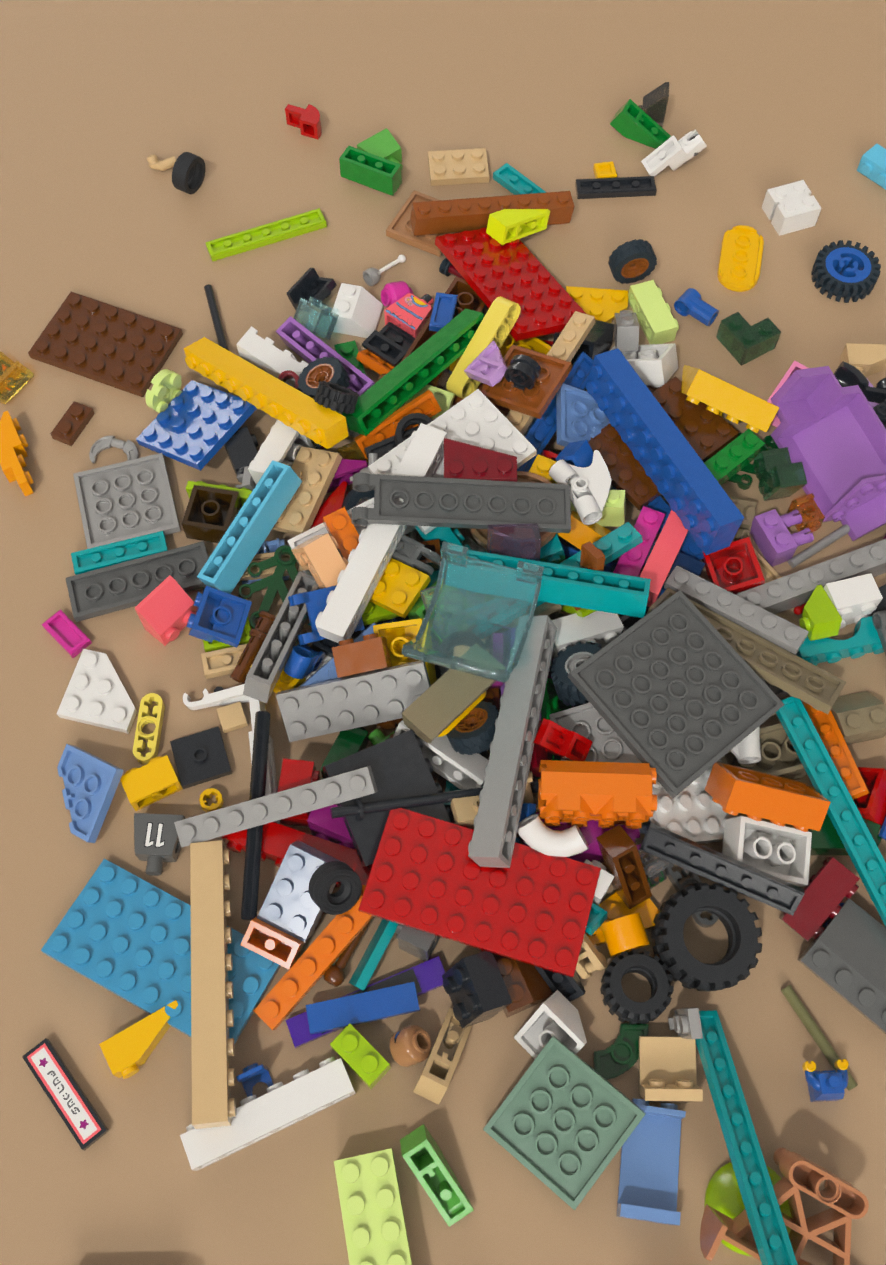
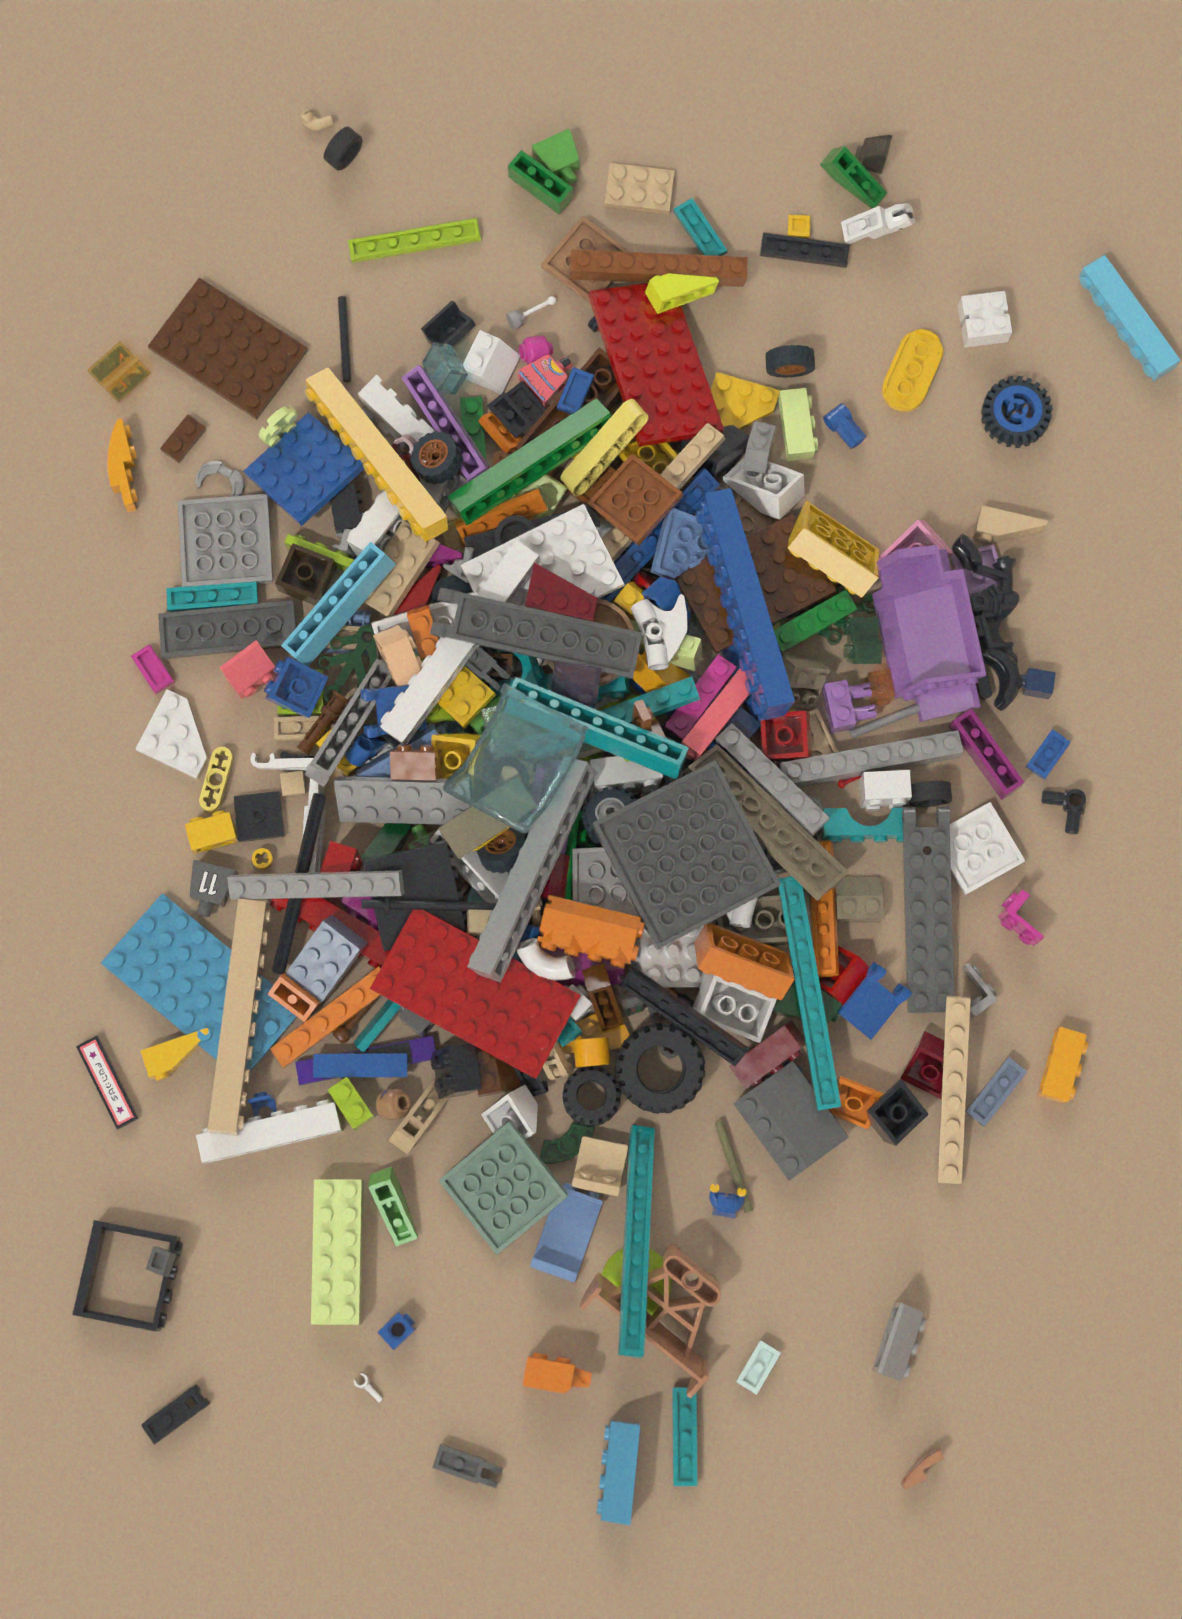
camera: 10 degrees right, 15 degrees up
(88, 790) = (155, 828): medium blue plate -> none
(306, 119) = (485, 93): red brick -> none
(336, 397) = (443, 488): black tyre -> none
(346, 896) = (354, 977): black tyre -> none
(488, 366) = (602, 475): lavender wing -> none
(523, 372) = (630, 496): black wheel -> none
(562, 742) = (575, 880): red brick -> none
(686, 1023) = (619, 1134): light grey hinge -> none
(747, 341) = (885, 480): clear green brick -> none
(820, 616) = (850, 800): lime slope -> none

